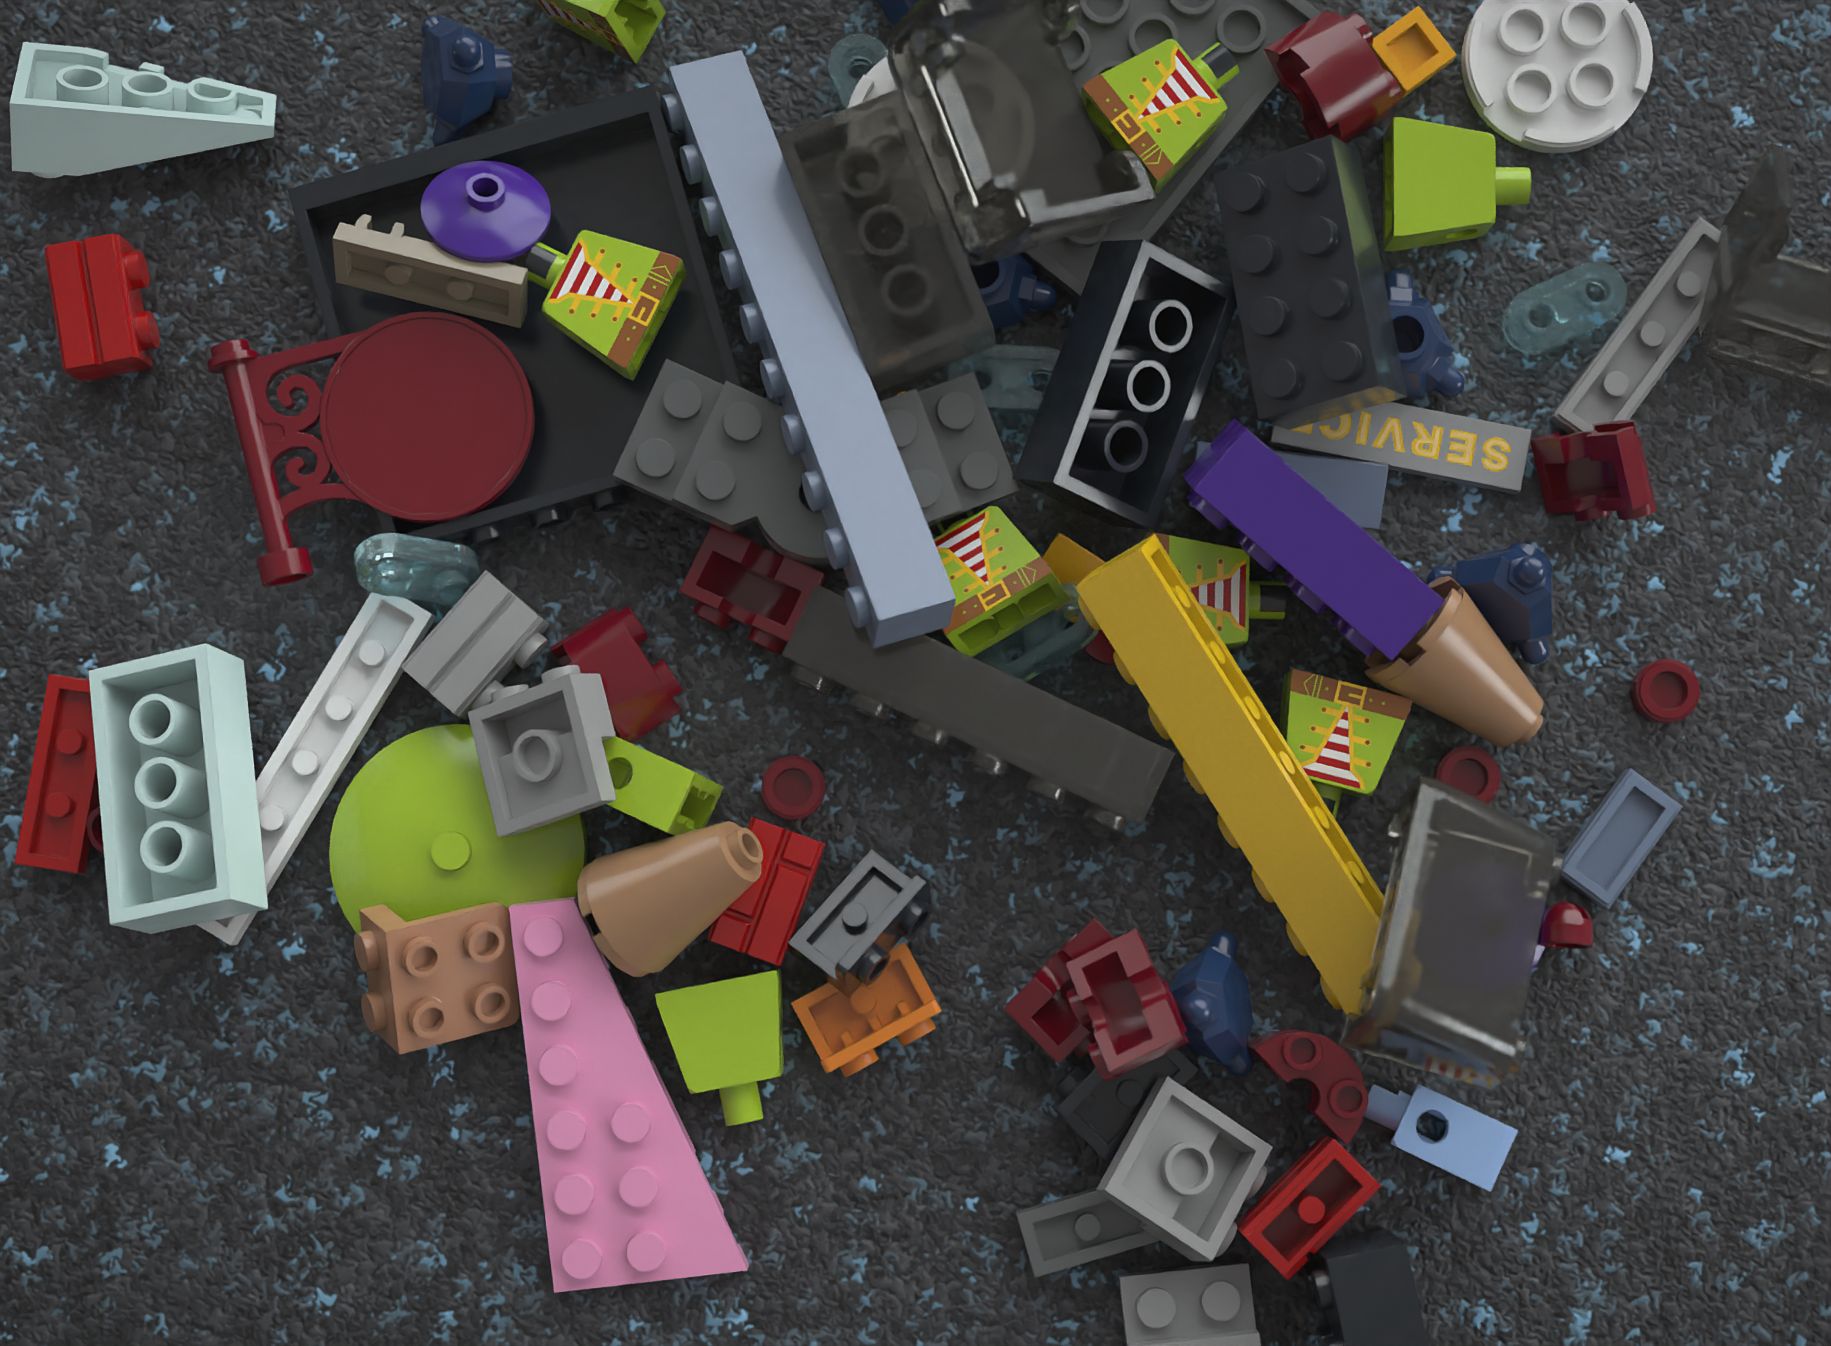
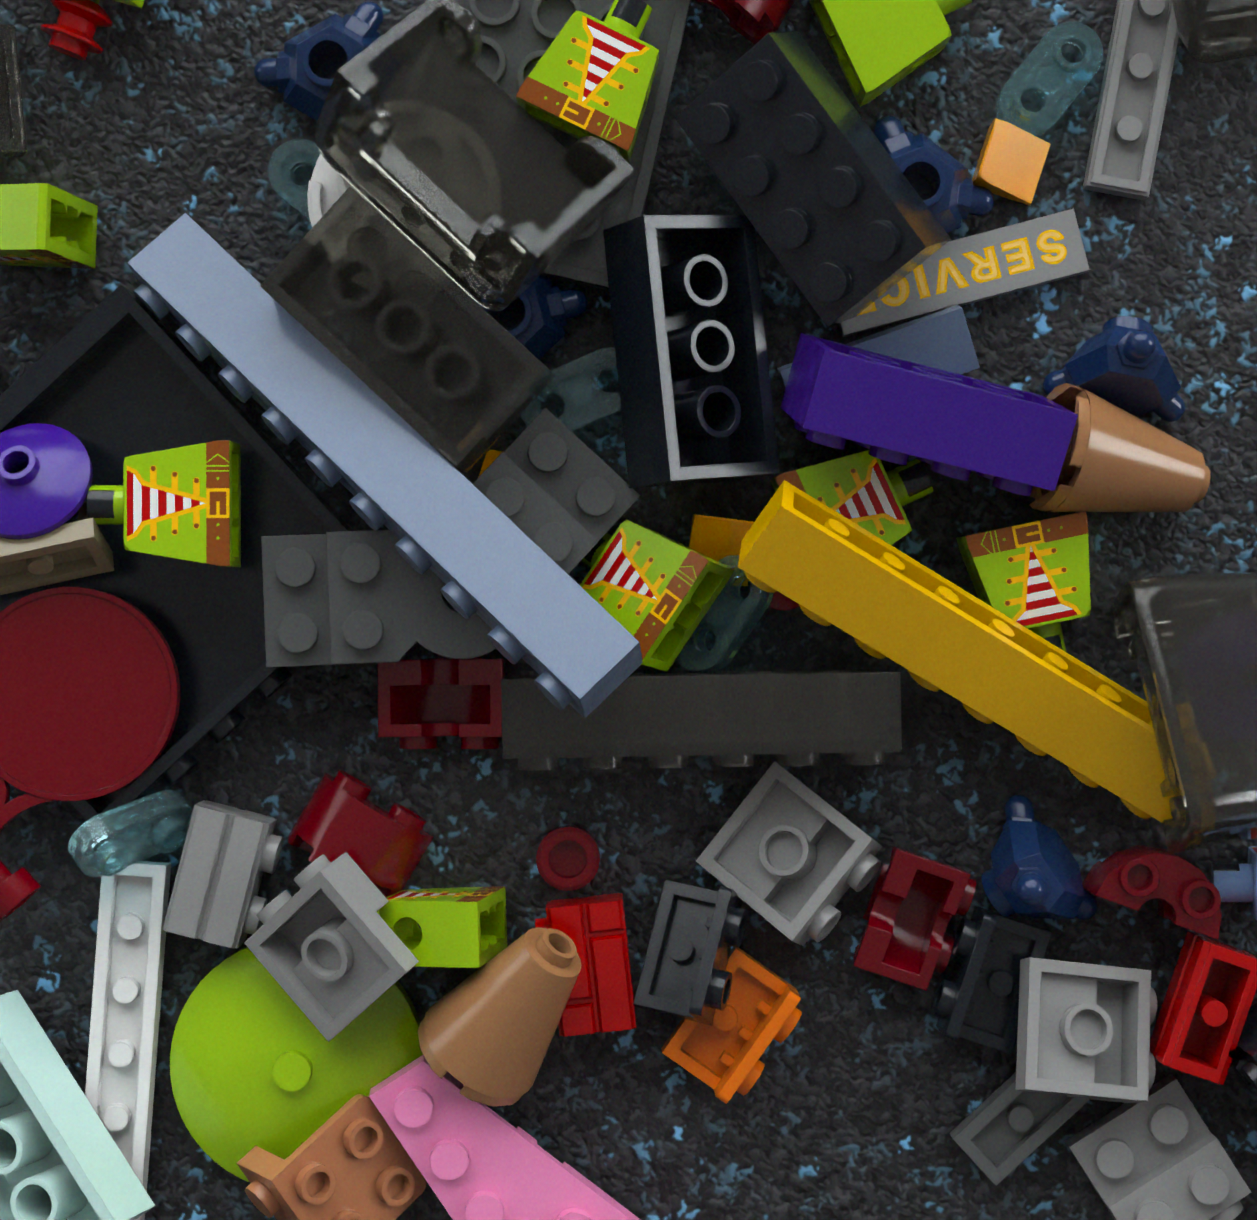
camera: 30 degrees left, 5 degrees up
(728, 1038) = (620, 1110): lime torso -> none
(997, 883) = (791, 856): none -> light grey plate
(1126, 1004) = (966, 916): dark red cylinder -> none
(1470, 771) = (1163, 550): dark red tile -> none
(1495, 363) = (1010, 162): none -> light orange slope
(1595, 472) = (1151, 221): dark red cylinder -> none

